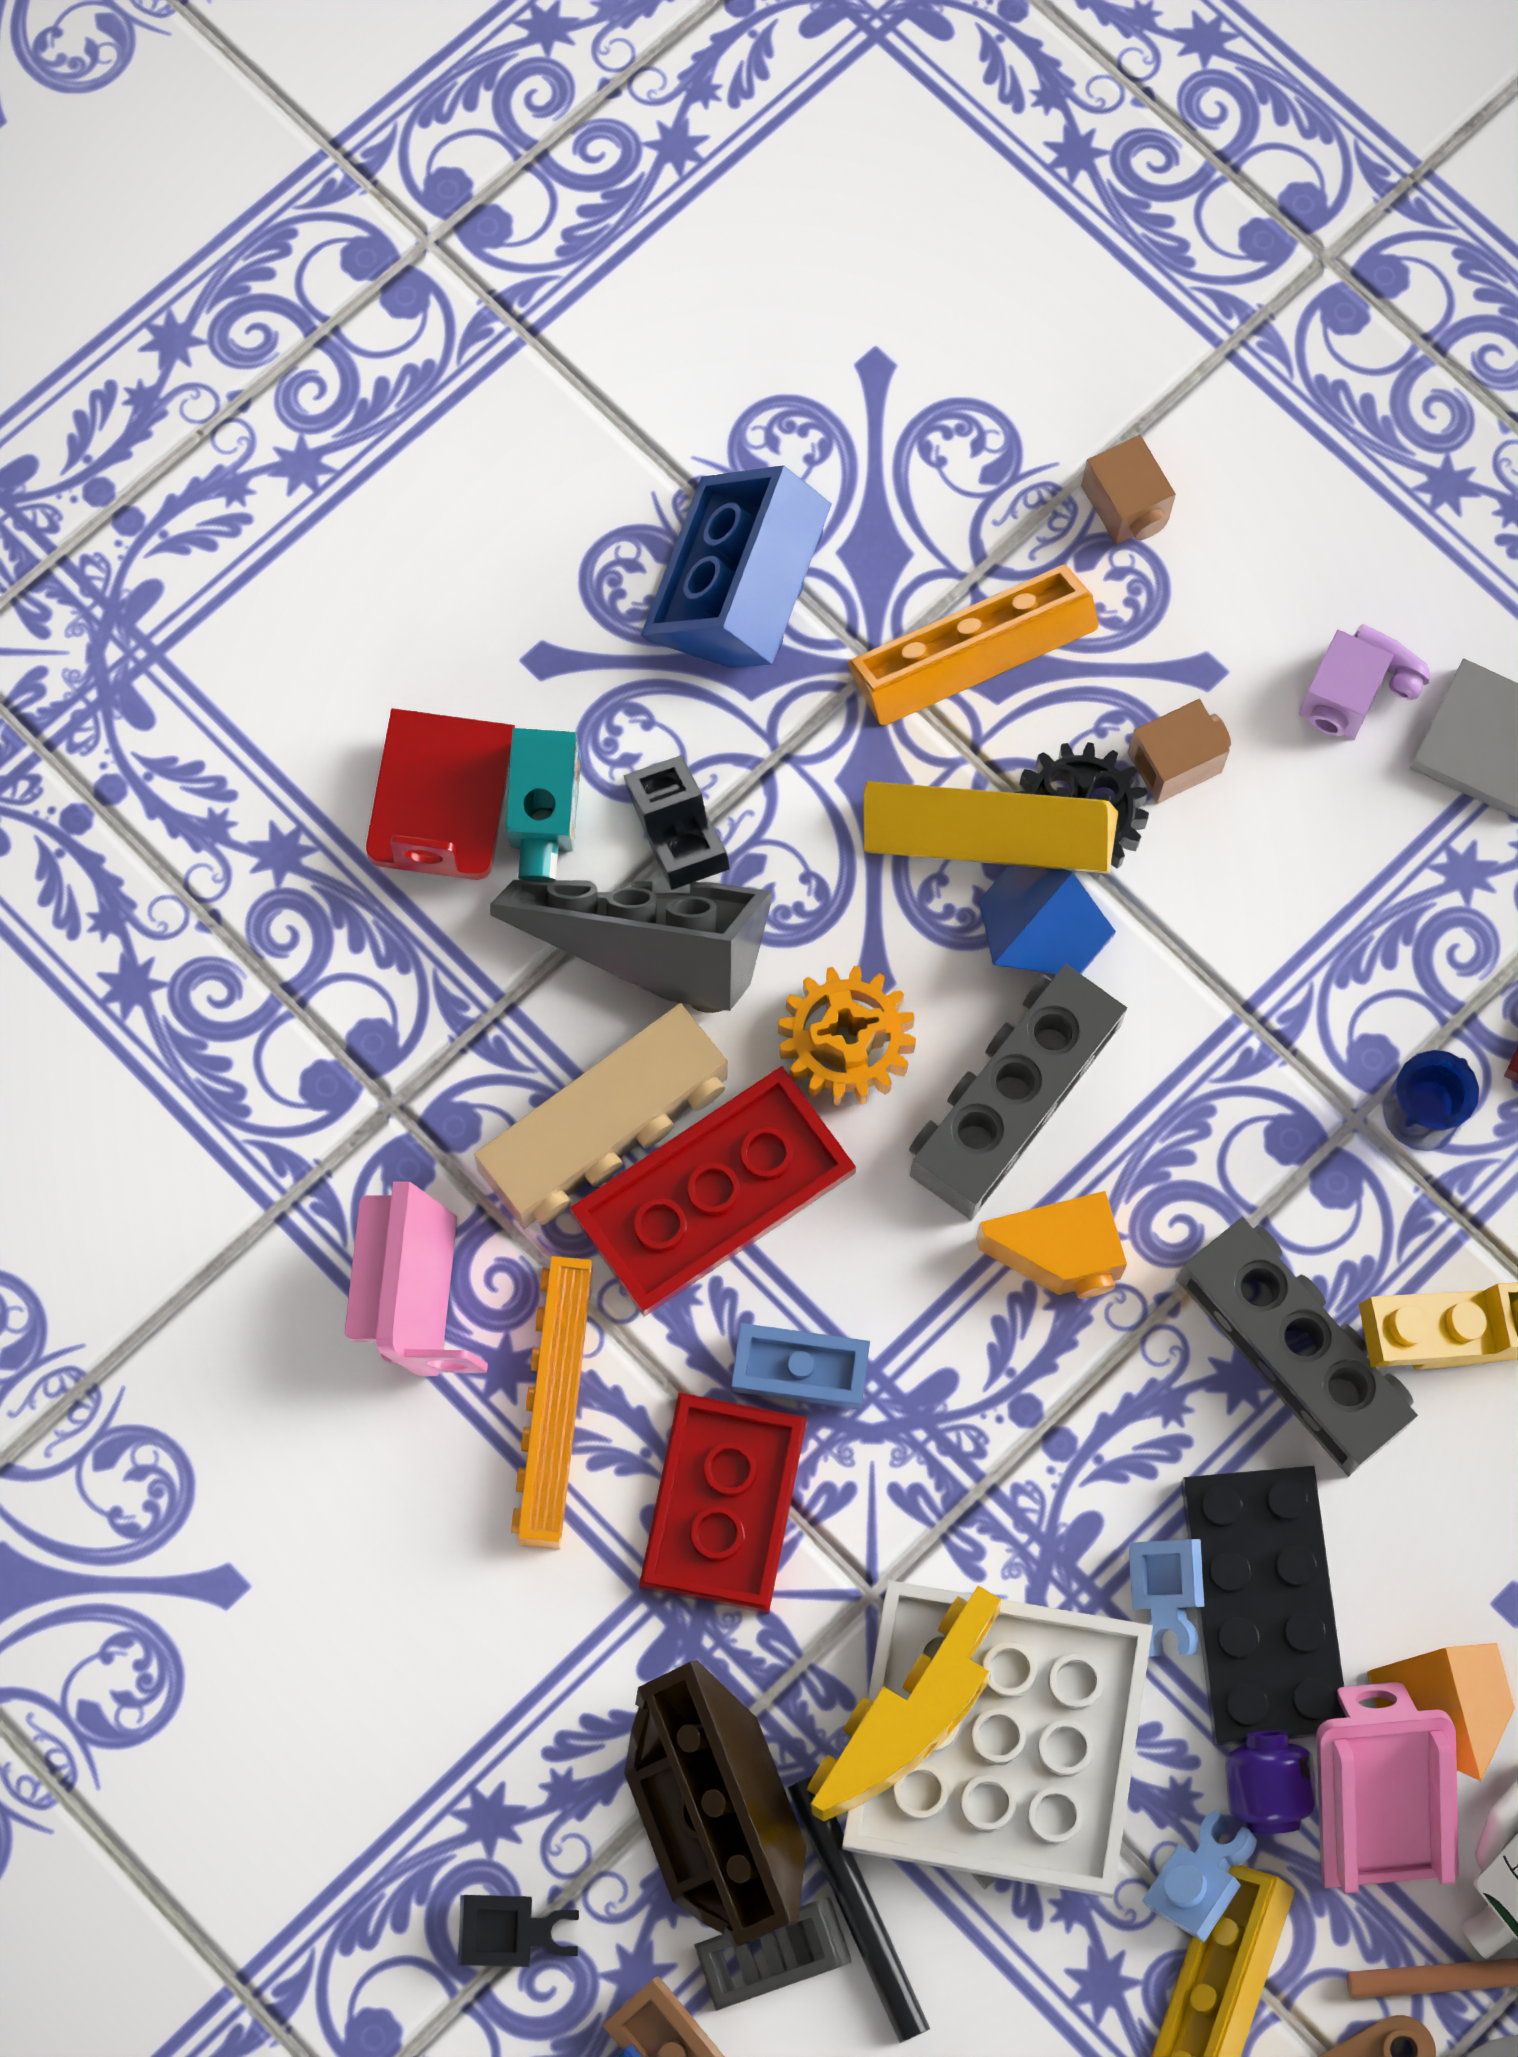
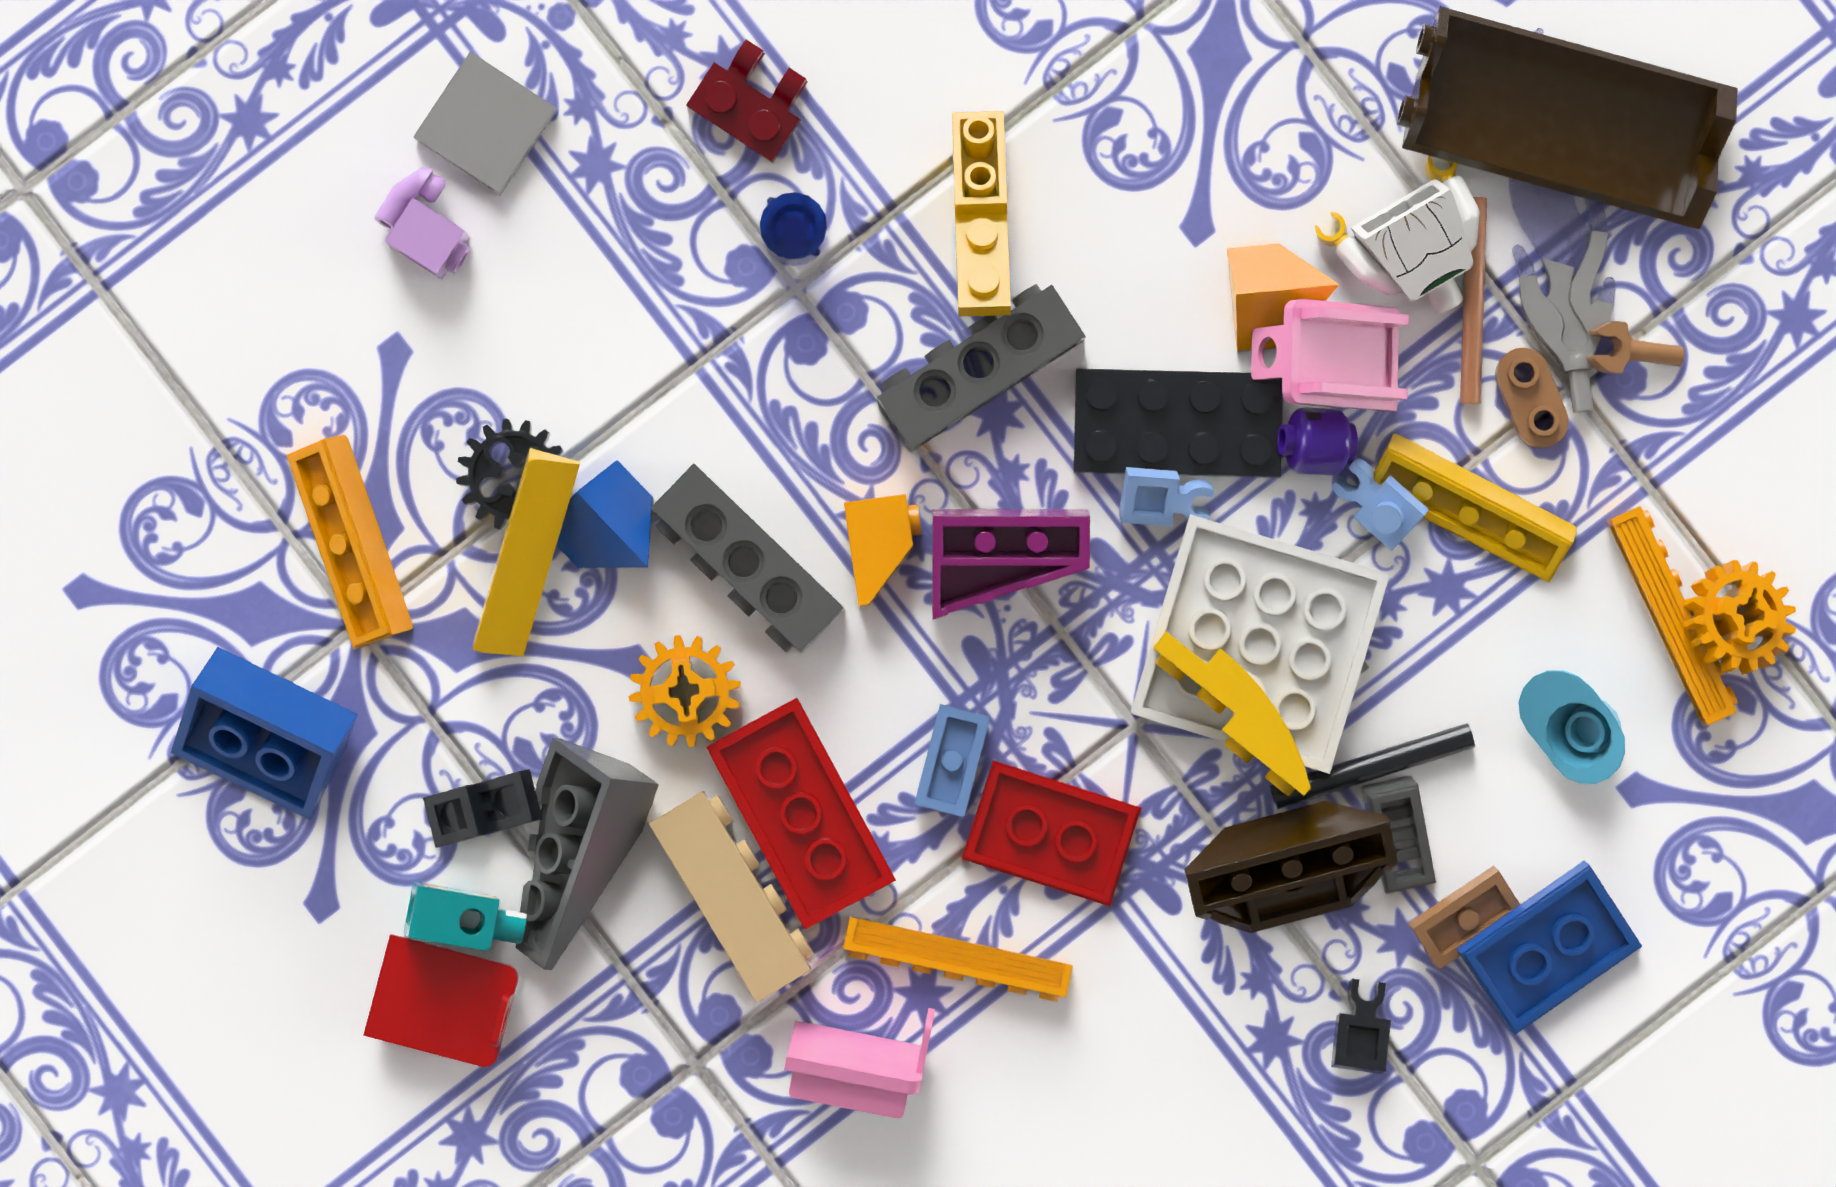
camera: 80 degrees left, 15 degrees up
(1071, 1390) = (1003, 551): none -> magenta wedge
(1128, 491) = (232, 393): medium nougat brick -> none
(1179, 750) = (469, 384): medium nougat brick -> none

